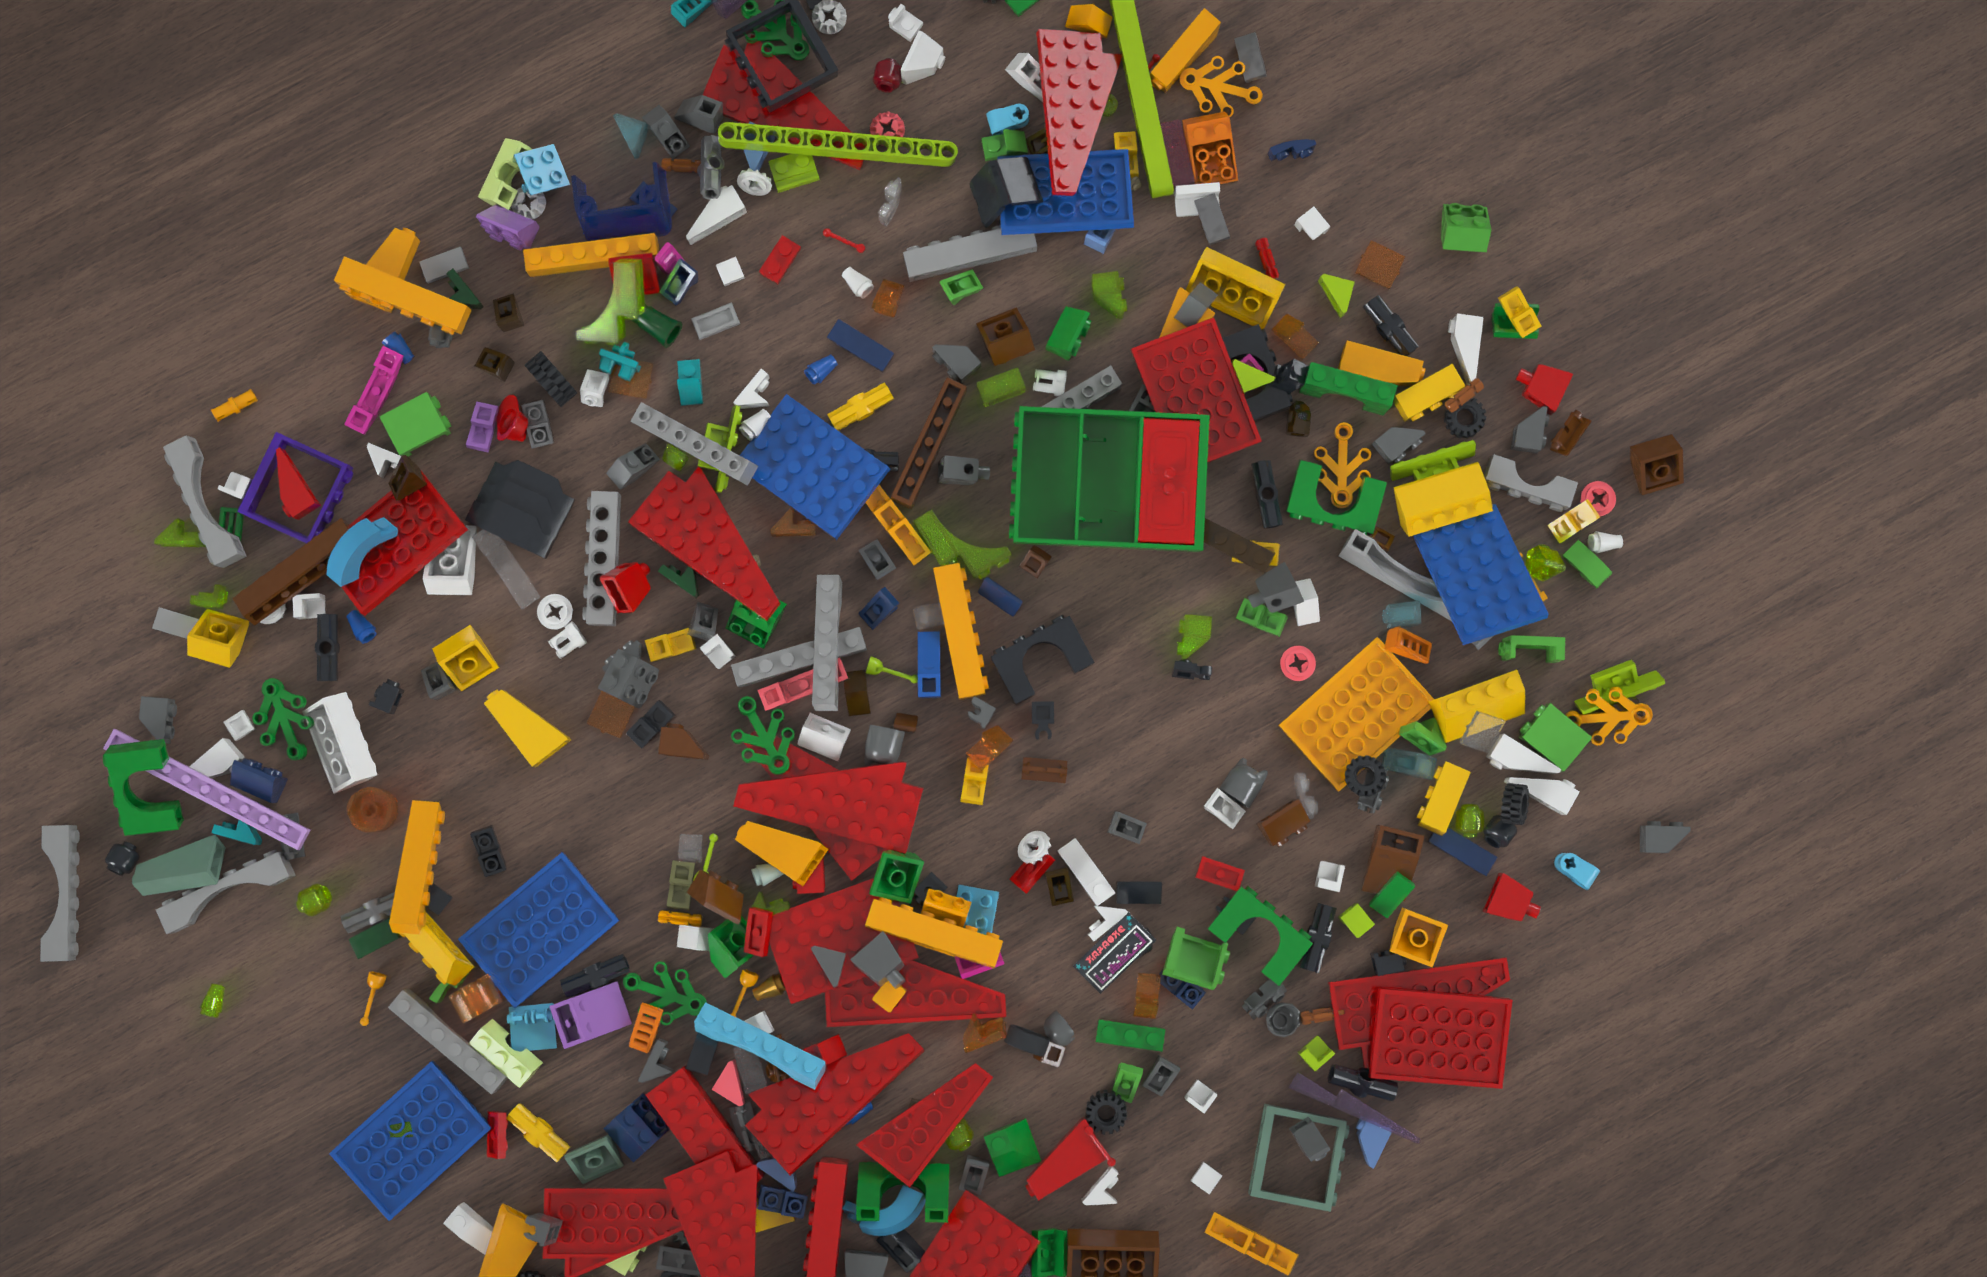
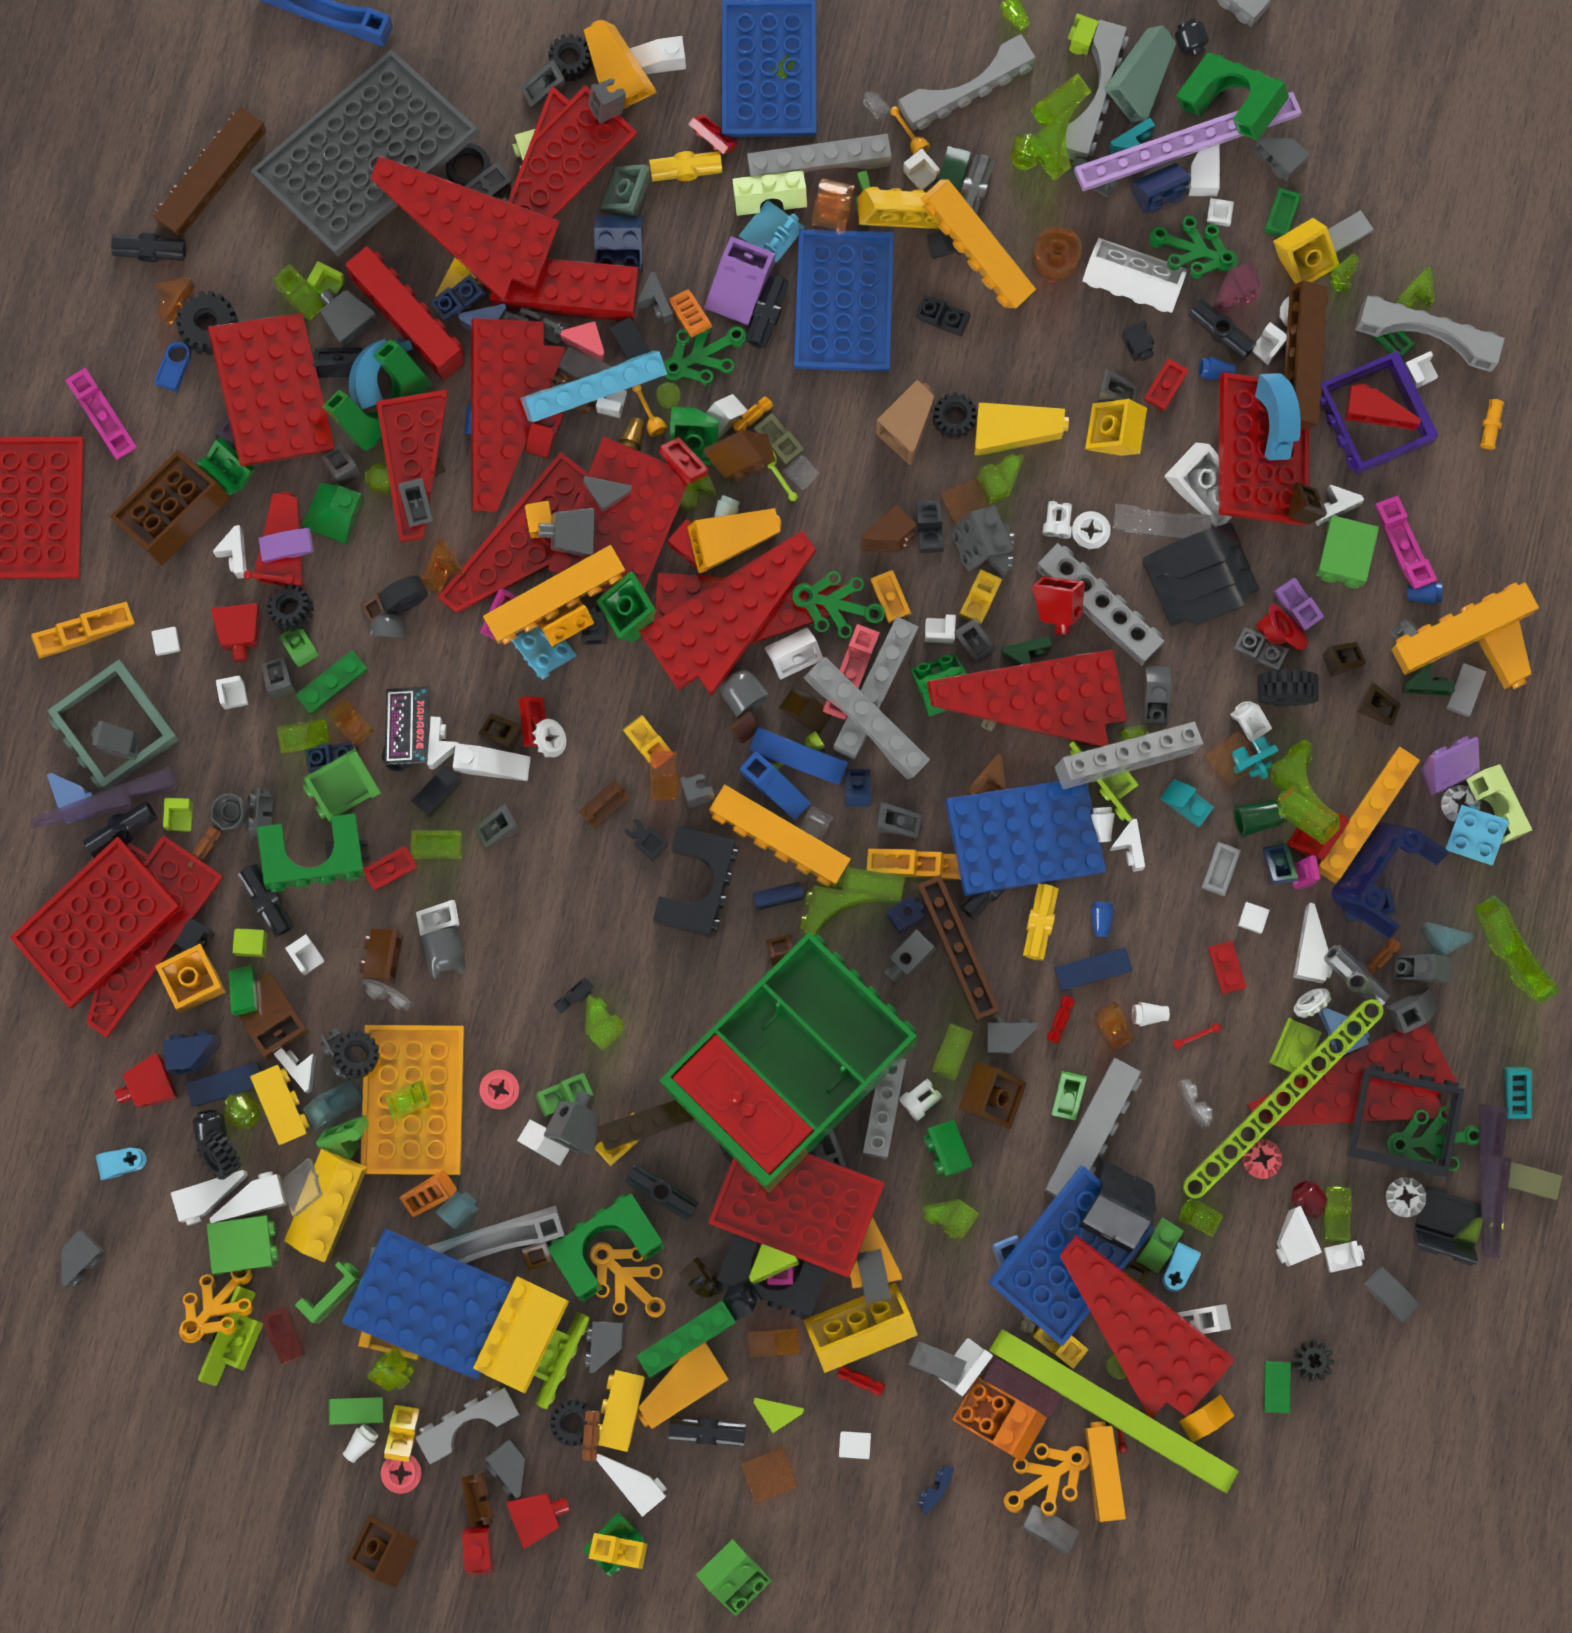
camera: 135 degrees right, 5 degrees down
(188, 937) = (1082, 34): none -> lime brick
(201, 681) = (1282, 212): none -> green tile
(269, 901) = (1054, 116): none -> clear neon green arch
(284, 664) = (1239, 286): none -> clear pink slope
(341, 1002) = (927, 105): none -> light grey arch
(371, 1039) = (875, 104): none -> clear slope
(393, 961) = (921, 170): none -> white panel
(402, 651) = (1166, 385): none -> red plate
(543, 770) = (948, 428): none -> black tyre
(572, 703) = (999, 479): none -> clear neon green slope
(589, 803) = (906, 420): none -> medium nougat slope
(599, 87) = (1511, 948): none -> clear neon green arch
(717, 991) = (668, 395): none -> clear neon green tile
(725, 706) = (890, 596): none -> light orange plate
(884, 47) = (1337, 1214): none -> clear neon green slope
(894, 669) = (798, 756): none -> blue slope
(913, 337) = (1061, 1019): none -> red axle
(940, 507) = (904, 922): none -> clear blue brick
(957, 1088) = (416, 502): none -> dark grey slope
(963, 134) = (1200, 1217): none -> clear neon green bracket
(1067, 1154) = (286, 544): none -> medium lavender slope
(1153, 1135) = (238, 628): none -> red torso
(1176, 855) = (436, 844): none -> clear neon green brick
(1186, 1018) = (302, 735): none -> clear neon green slope
(1363, 713) = (408, 1100): none -> clear neon green slope
(1409, 803) = (301, 1073): none -> white slope
(1468, 890) = (189, 1053): none -> dark blue slope
(1584, 656) = (283, 1334): none -> clear red slope
(1601, 403) = (478, 1550): none -> red torso

